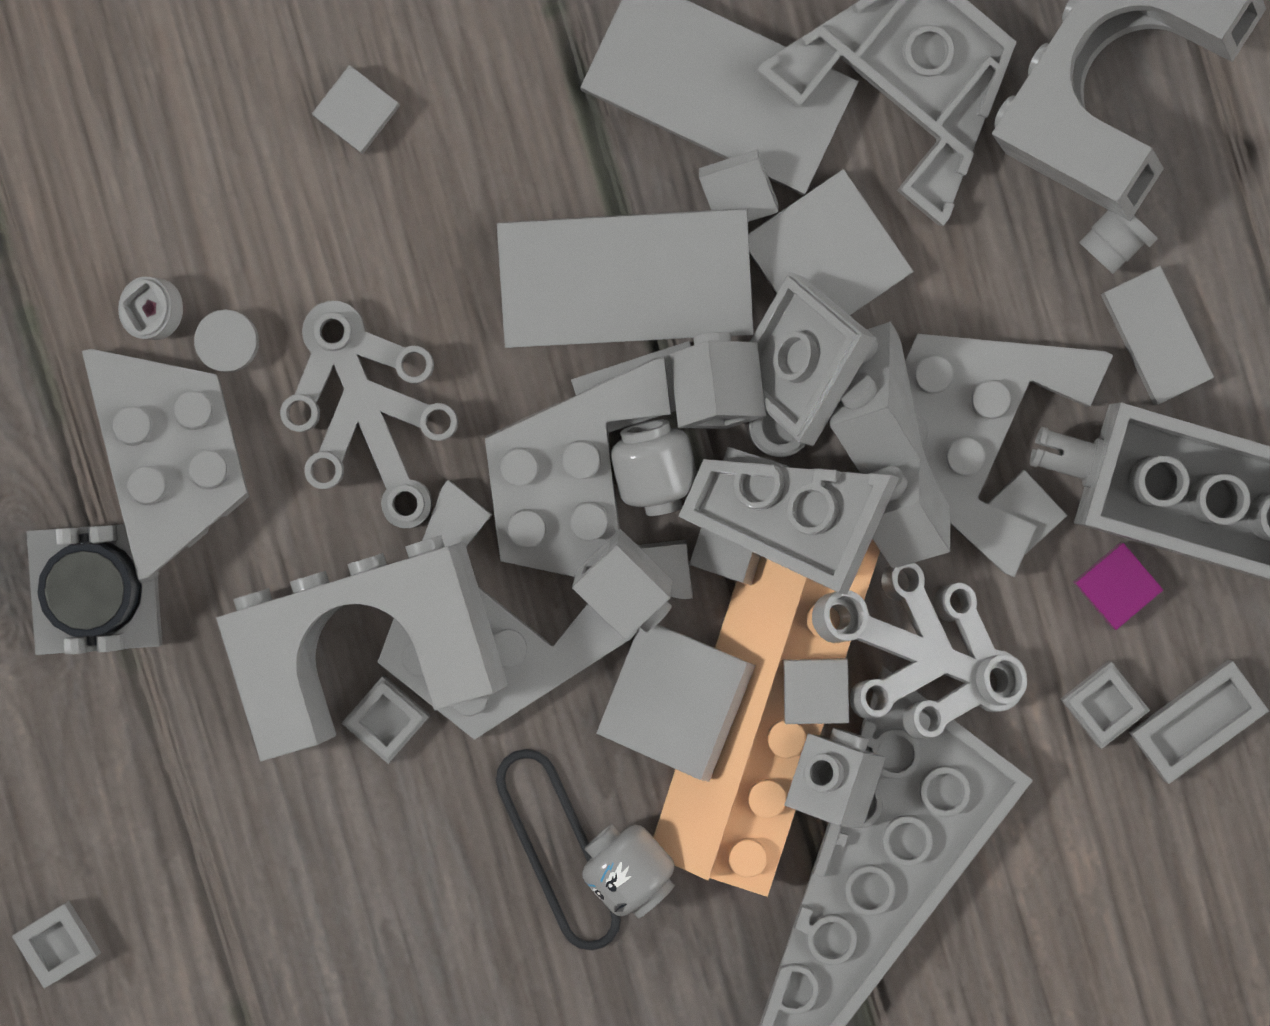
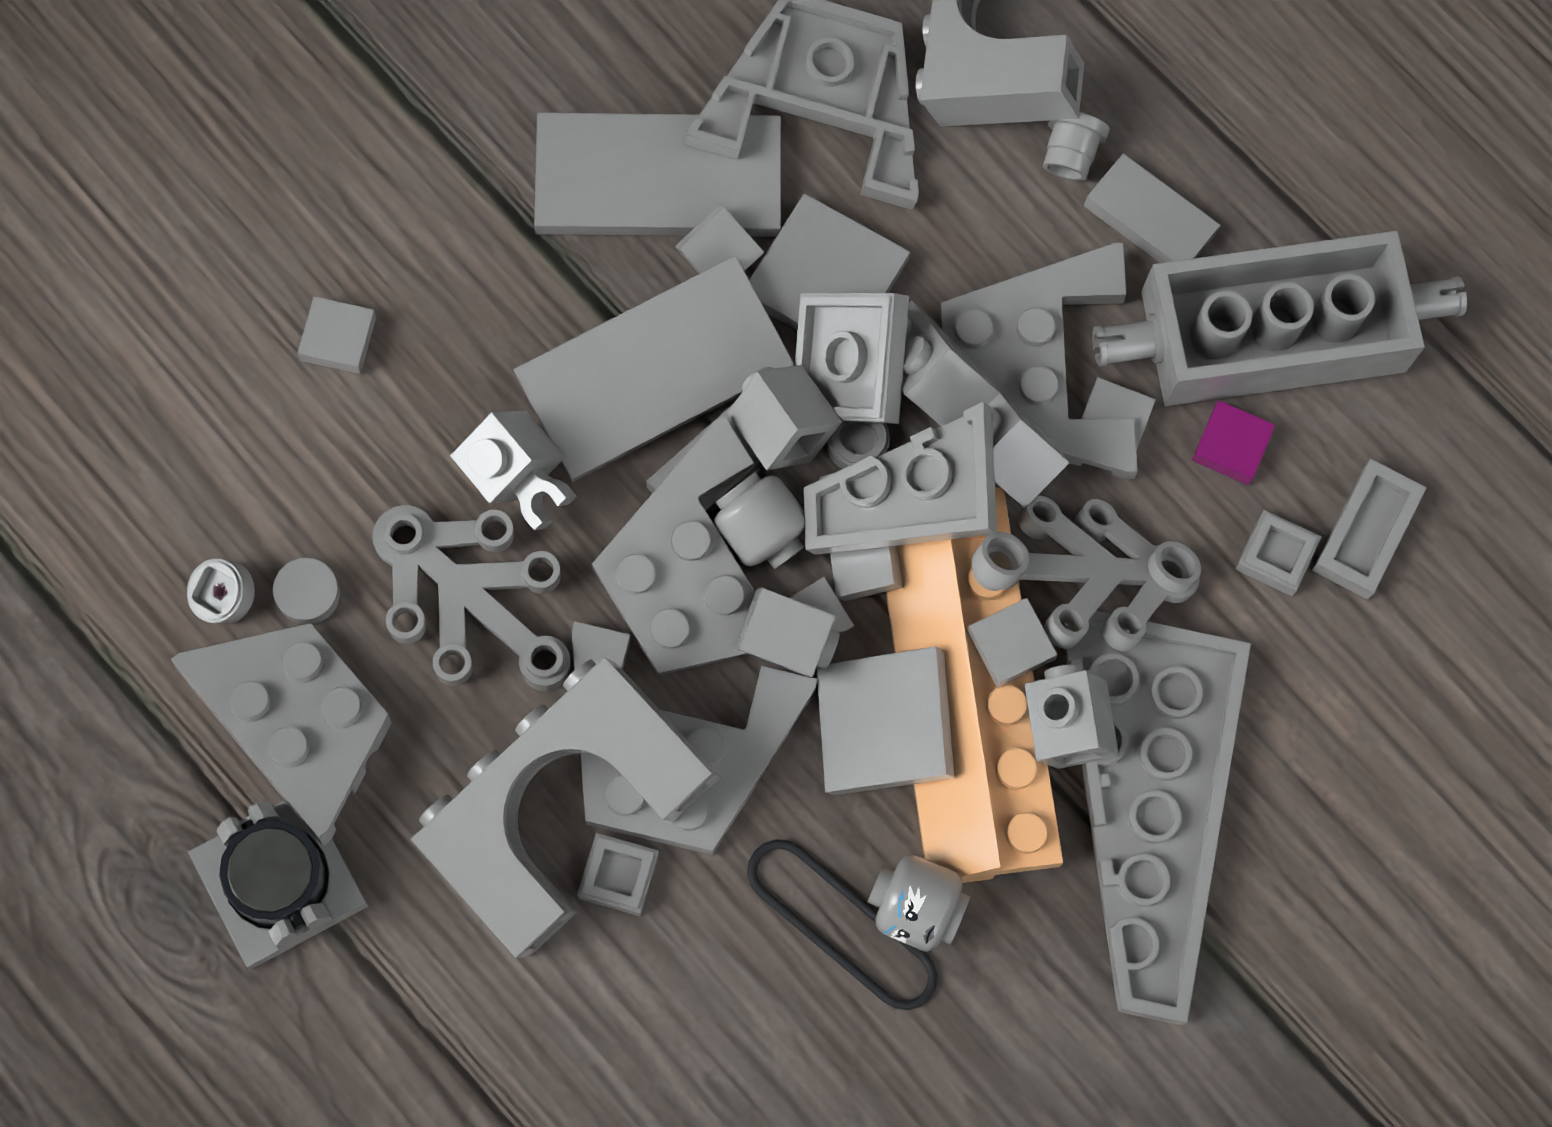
camera: 35 degrees left, 15 degrees down
(456, 311) = (512, 461): none -> brick

